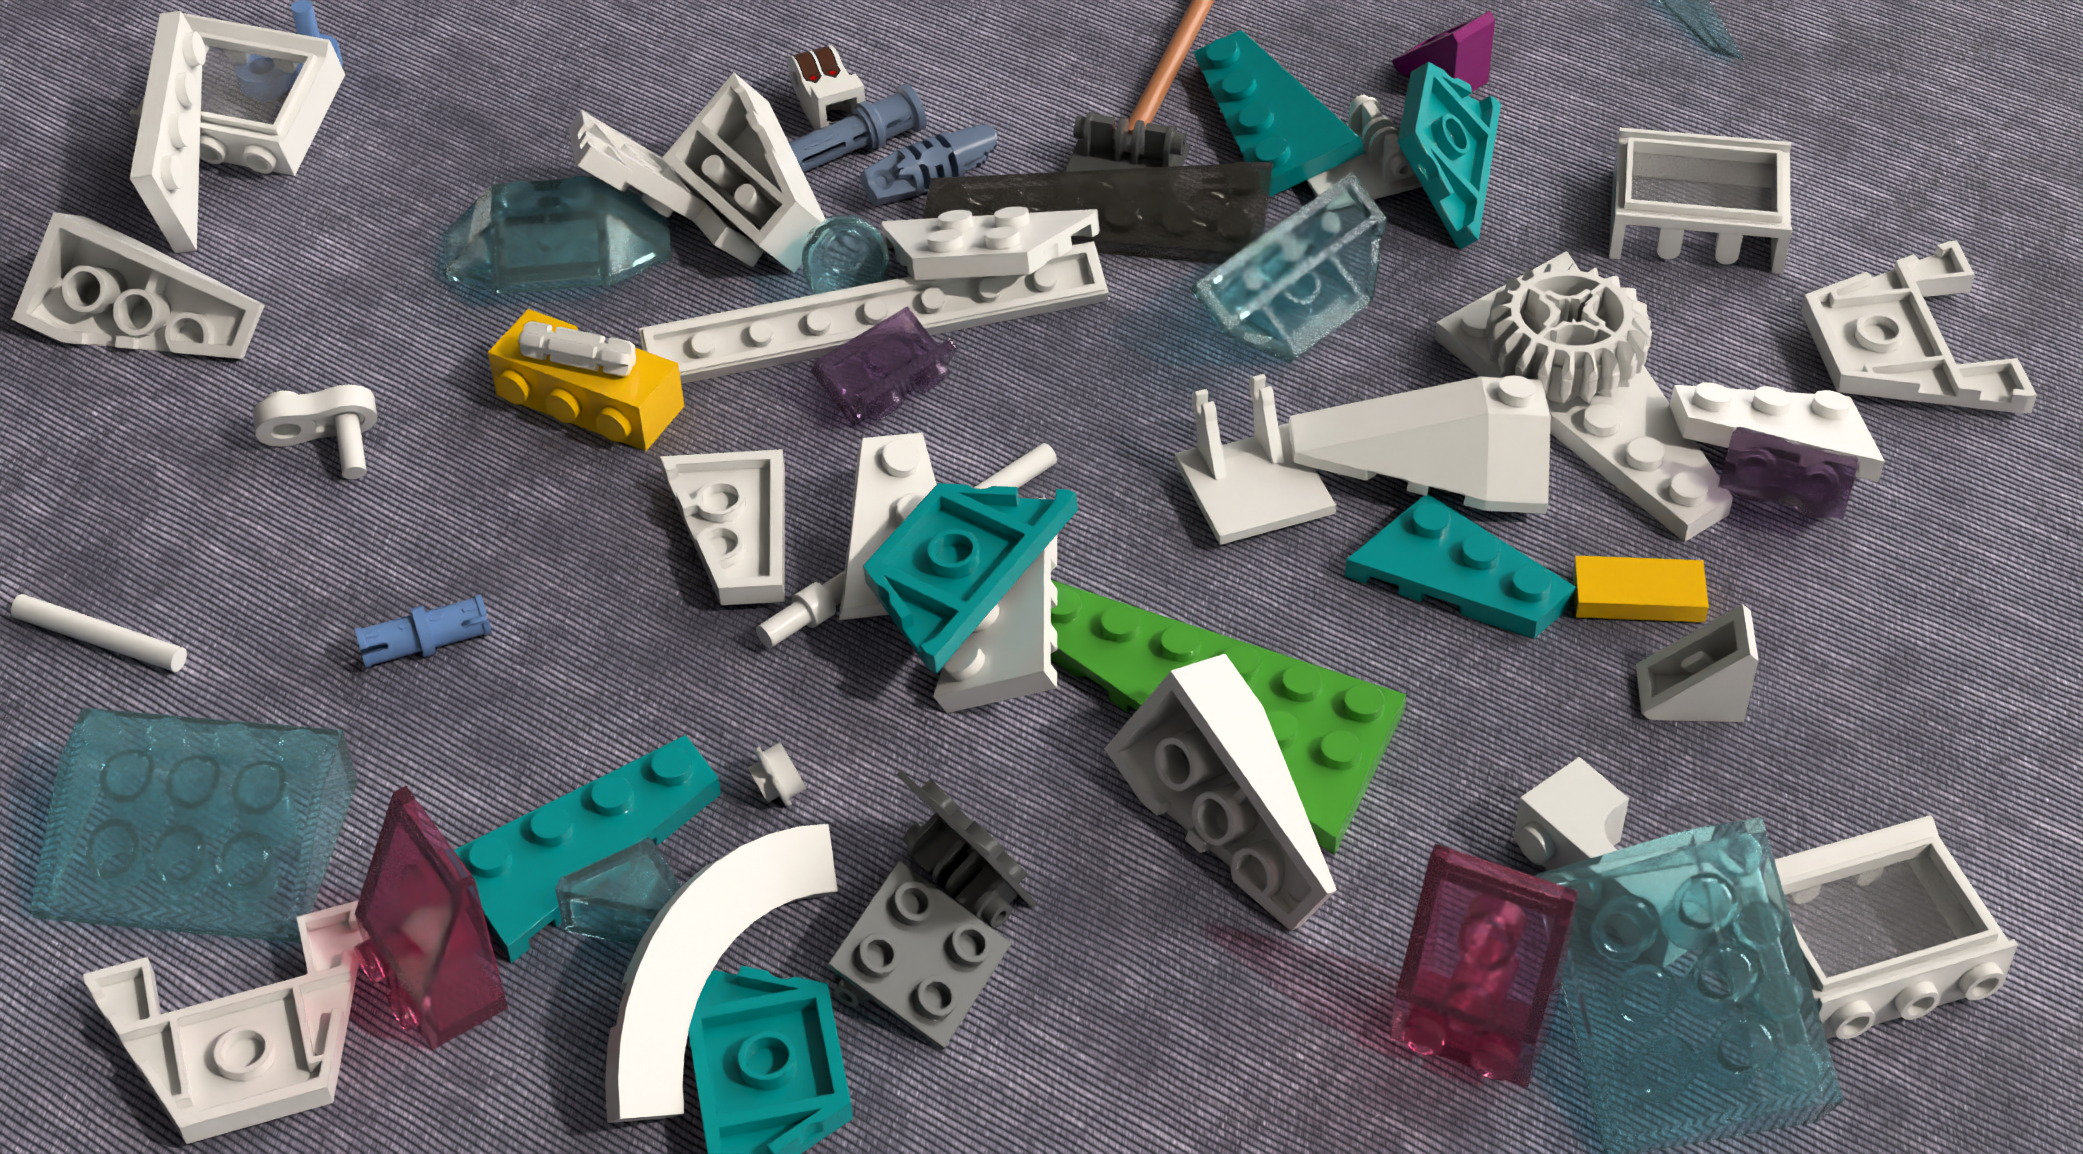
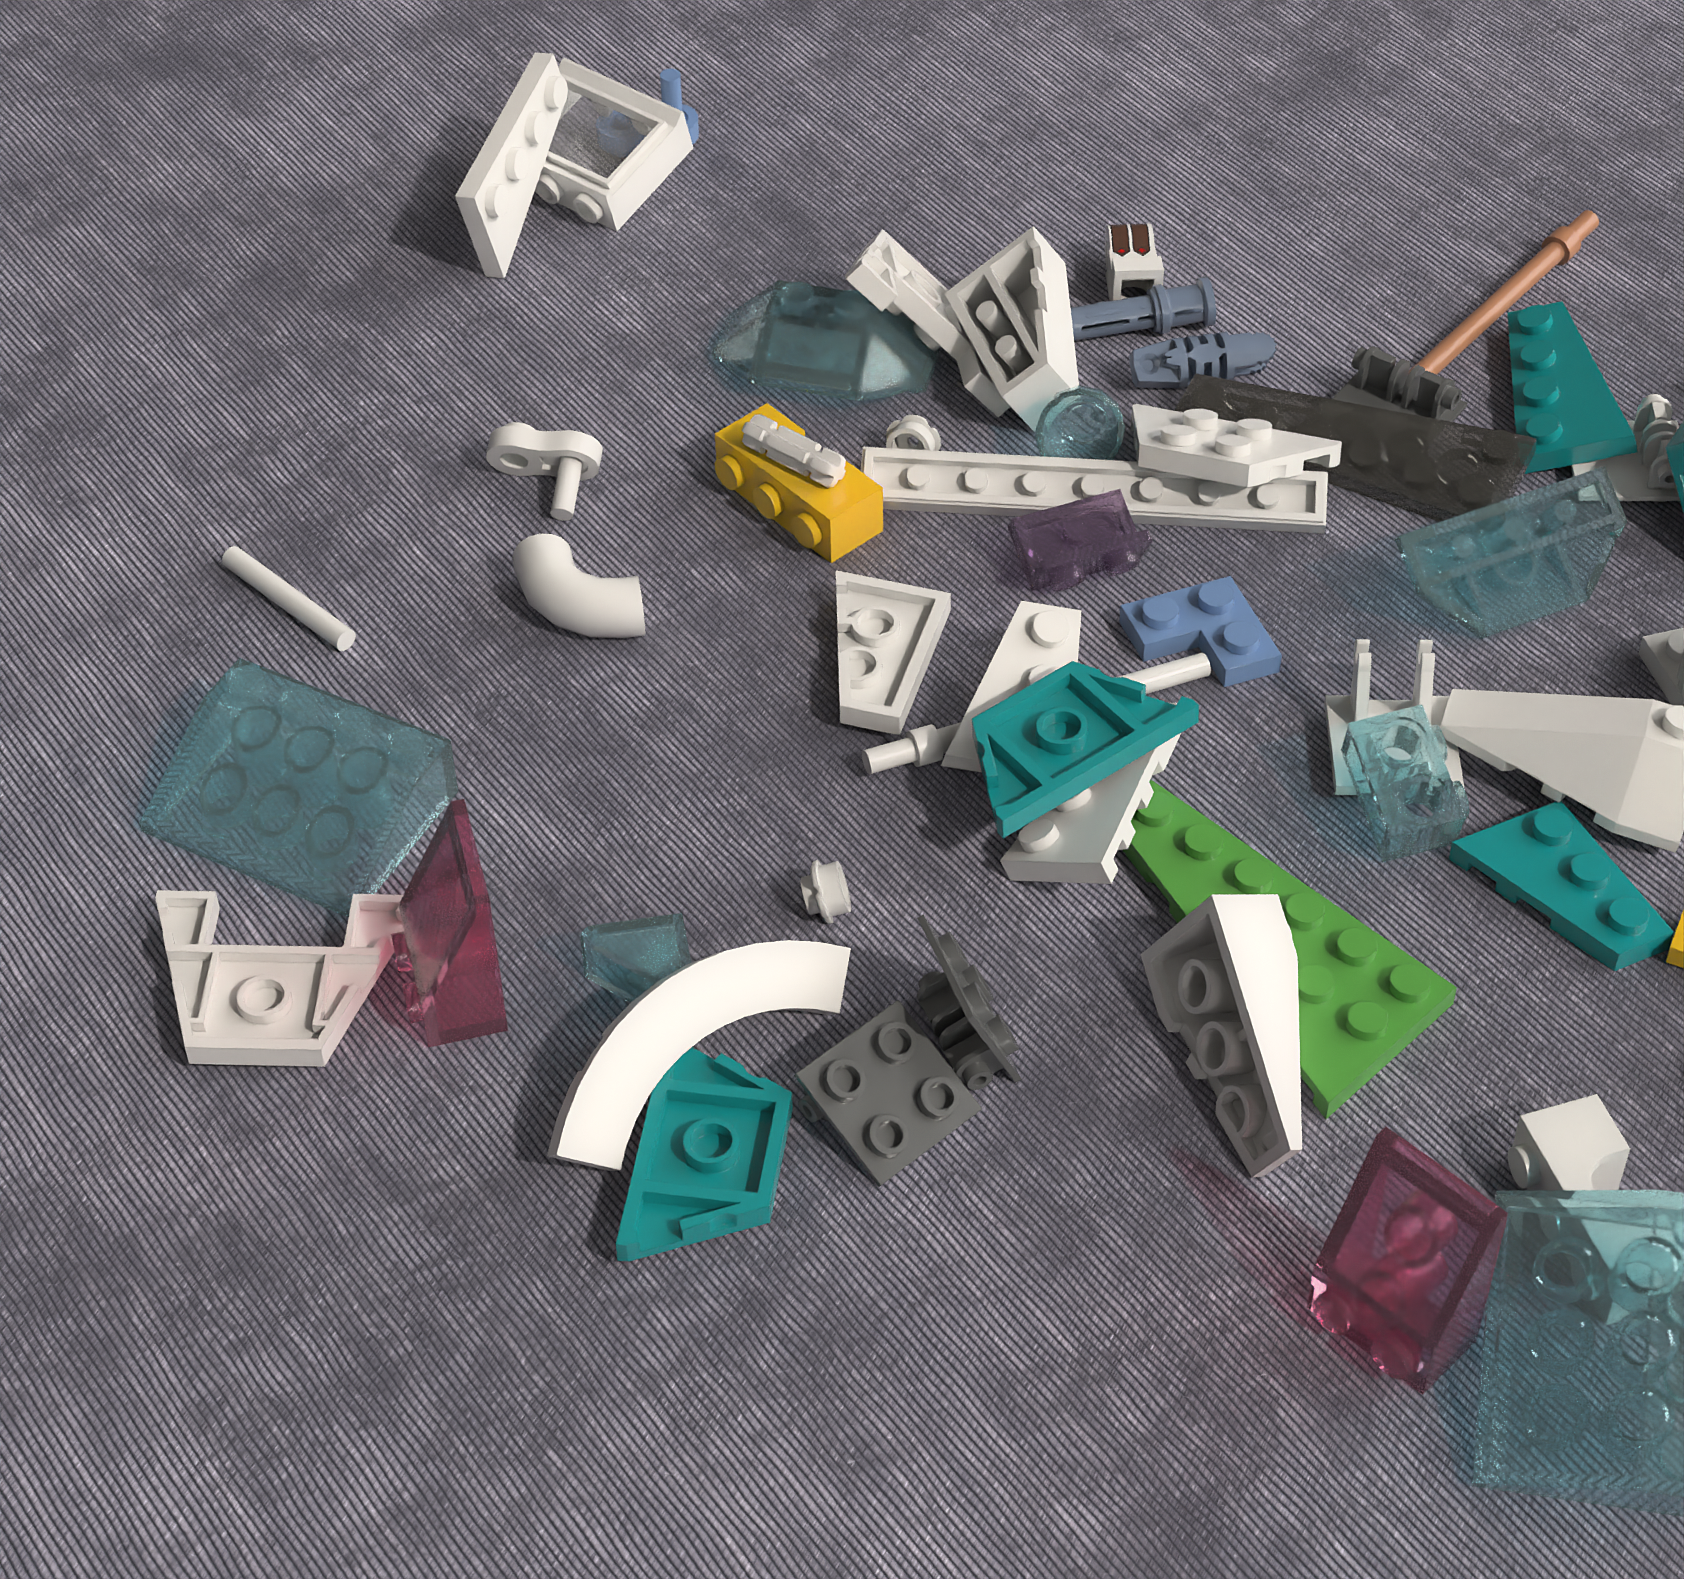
camera: 20 degrees right, 0 degrees up
(123, 294) = (425, 302): white wedge -> none
(405, 553) = (575, 598): none -> white cylinder
(423, 631) = (564, 672): medium blue pin -> none
(526, 858) = (691, 879): teal wing -> none
(678, 296) = (912, 426): none -> white plate
(1035, 408) = (1205, 617): none -> medium blue plate
(1271, 521) = (1390, 784): none -> clear light blue brick

